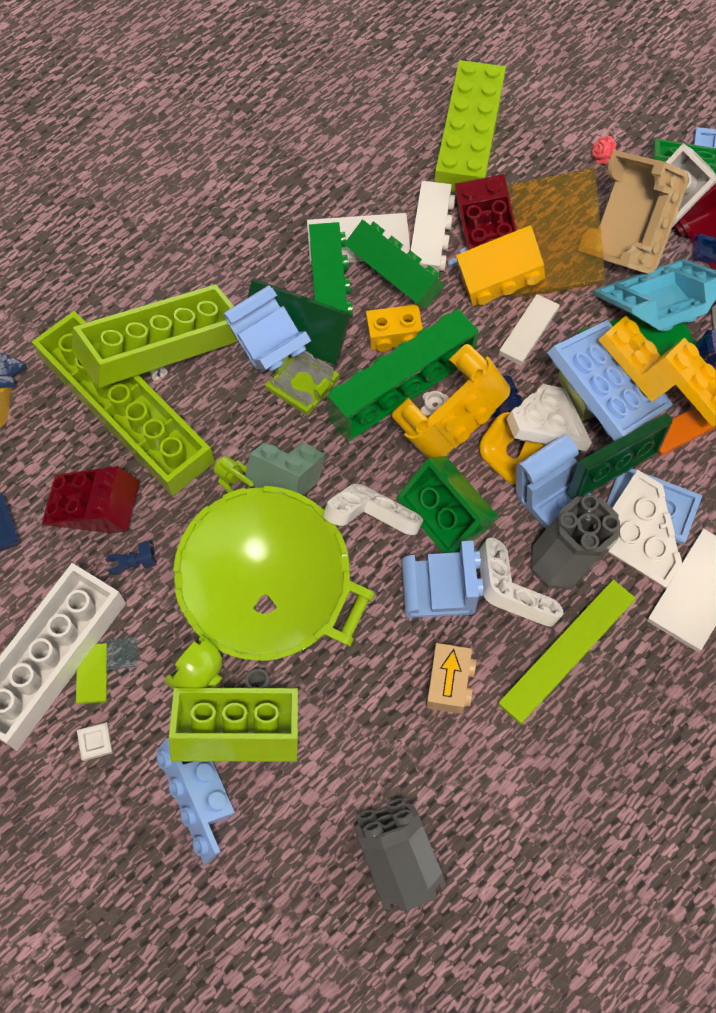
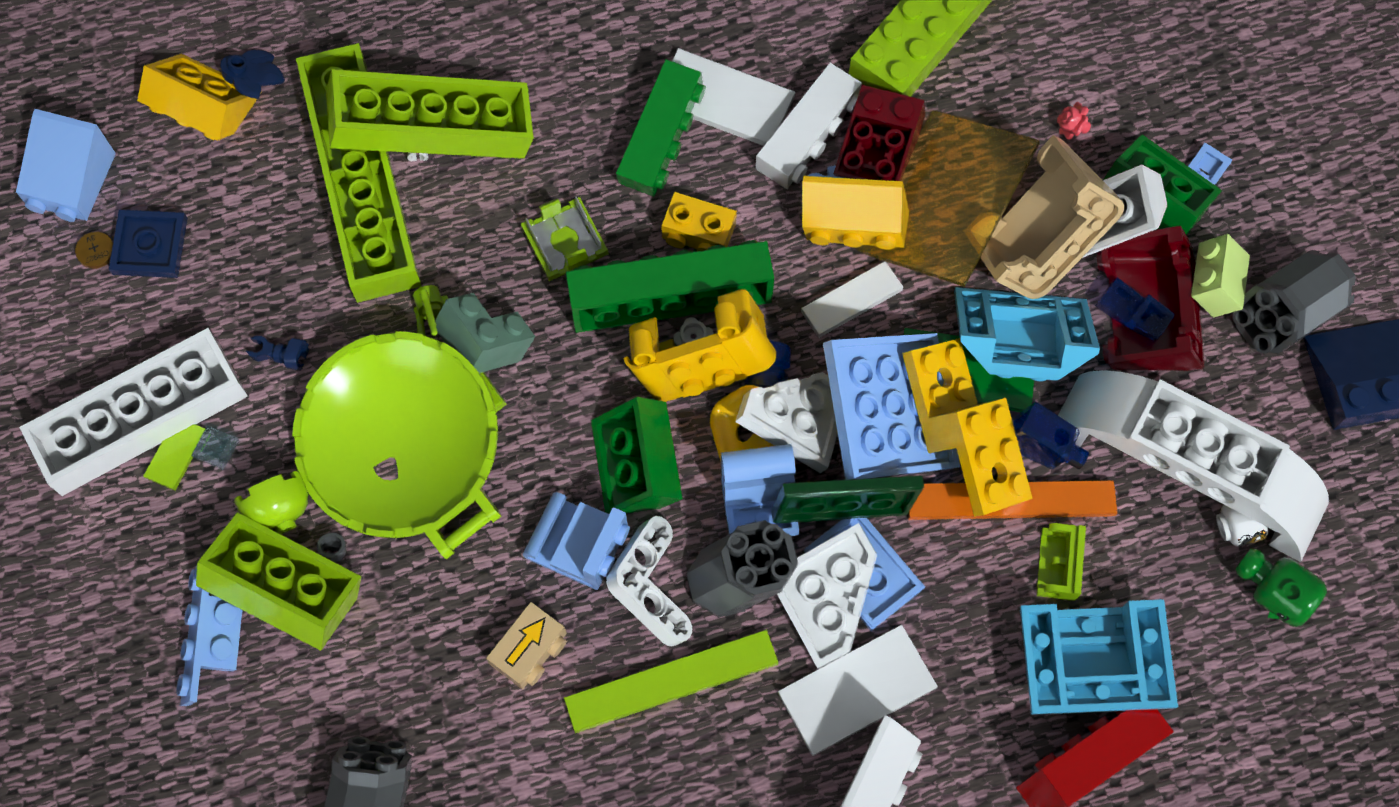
camera: 25 degrees right, 5 degrees up
(92, 500) = (271, 267): dark red slope -> none
(94, 741) = (140, 525): white tile -> none
(265, 330) = (547, 164): light blue piece -> none
(322, 322) = (591, 166): dark green tile -> none
(359, 499) = (554, 408): white beam -> none
(394, 264) = (736, 151): green brick -> none

